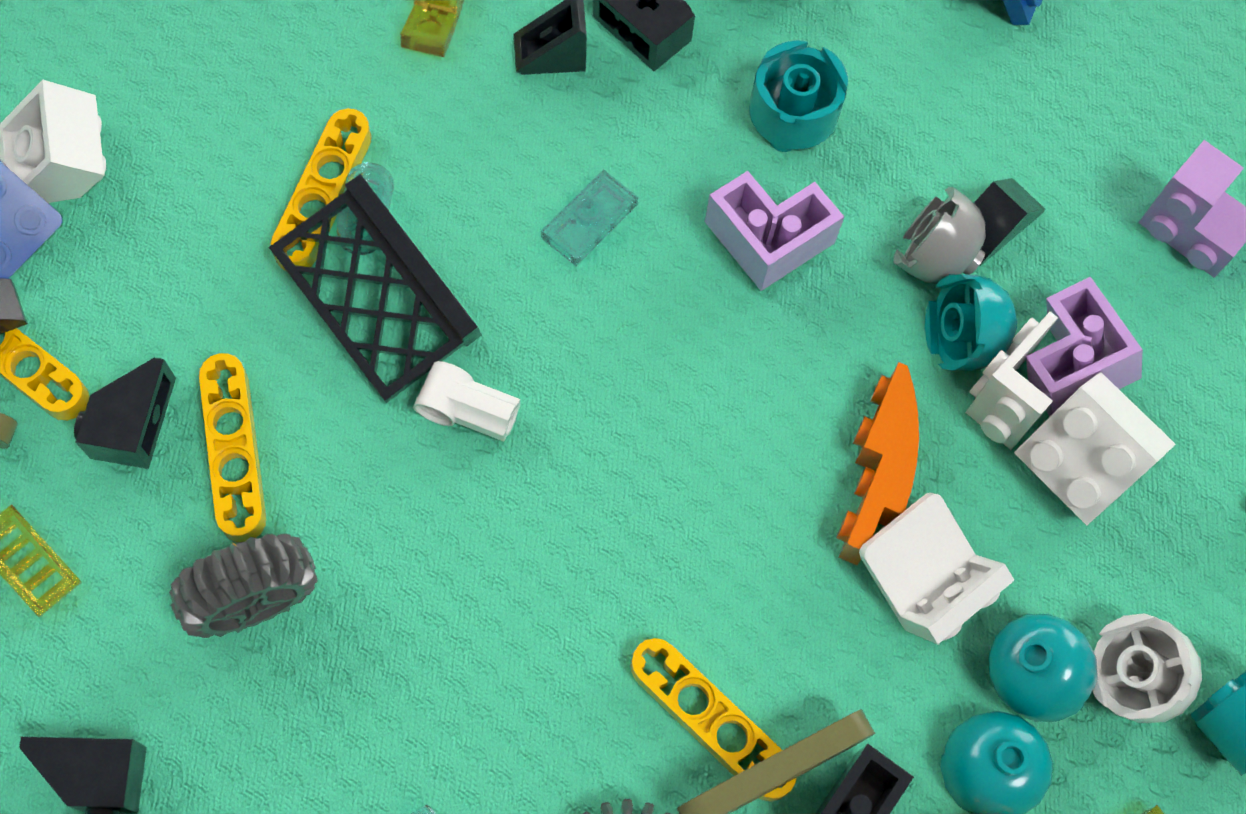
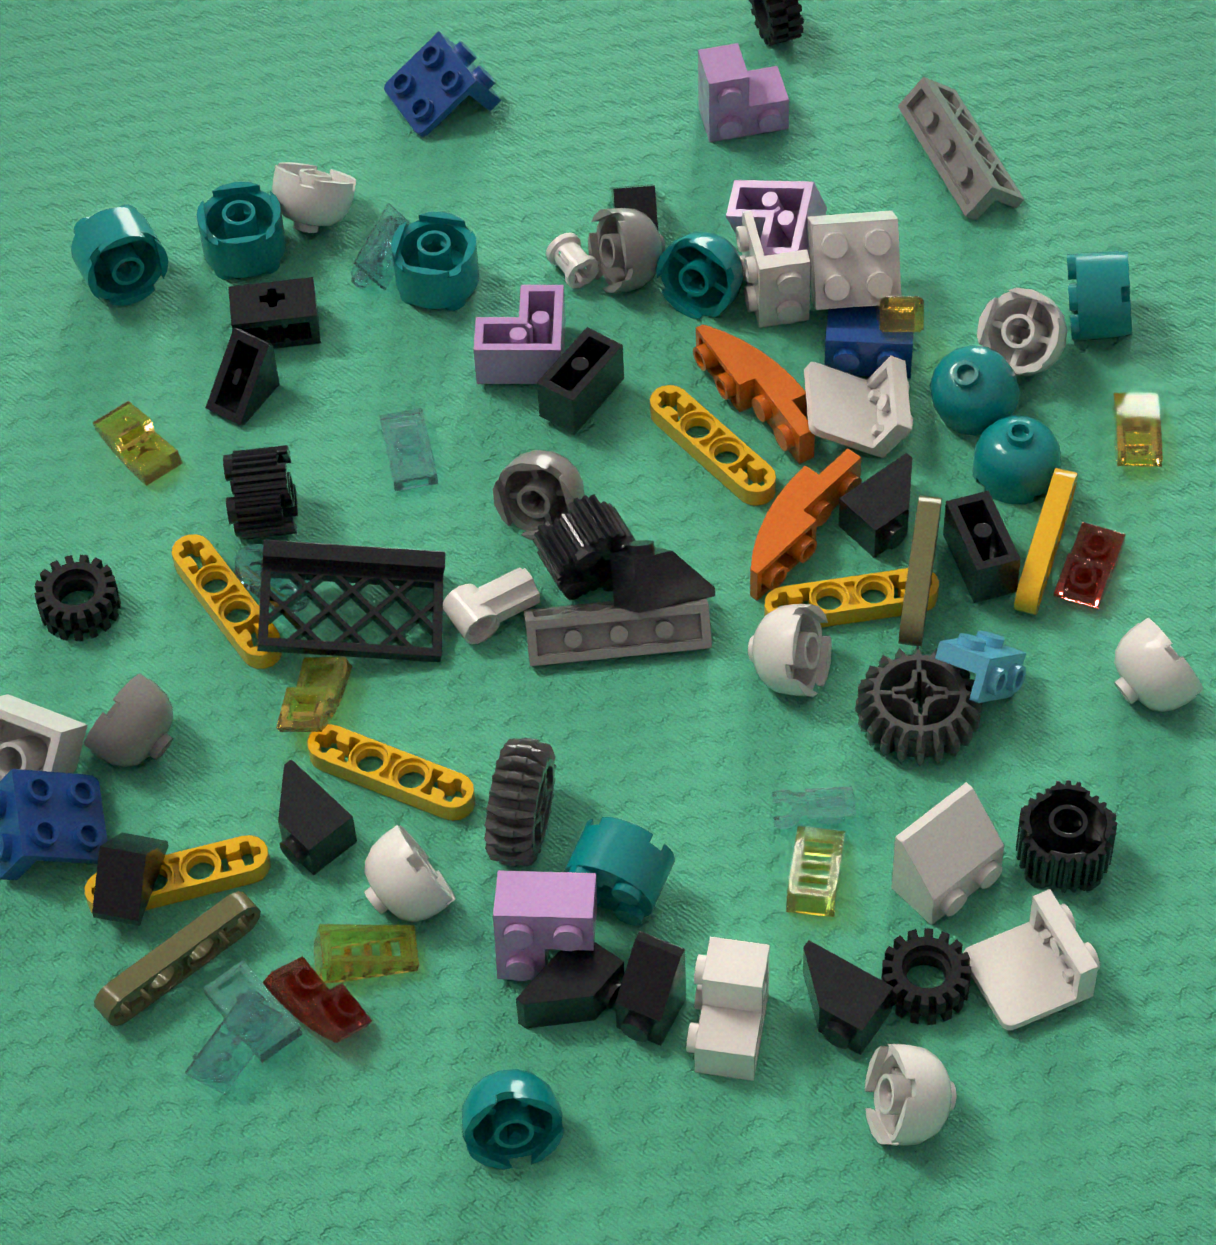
camera: 45 degrees left, 15 degrees down
(110, 544) = (404, 878): none -> white cylinder
(111, 700) = (541, 914): none -> lavender brick
(125, 210) = (133, 725): none -> light grey cylinder
(226, 727) = (626, 867): none -> teal brick
(237, 55) = (85, 616): none -> black tyre
(253, 334) = (316, 696): none -> clear yellow slope
(433, 135) = (261, 491): none -> black brick
(516, 530) = (607, 631): none -> light grey fence
(573, 443) = (580, 546): none -> black brick
(580, 531) = (654, 578): none -> black slope
(597, 709) = (791, 649): none -> white cylinder
(614, 360) = (536, 490): none -> light grey cylinder
(737, 605) = (792, 520): none -> orange slope
(757, 43) = (375, 259): none -> clear light blue hinge
(763, 305) = (580, 380): none -> black brick
(789, 465) = (708, 447): none -> yellow beam
(834, 675) = (878, 508): none -> black slope
(899, 203) = (572, 260): none -> white bush
(1023, 525) = (859, 346): none -> blue bracket
(1059, 539) = (900, 314): none -> clear yellow slope

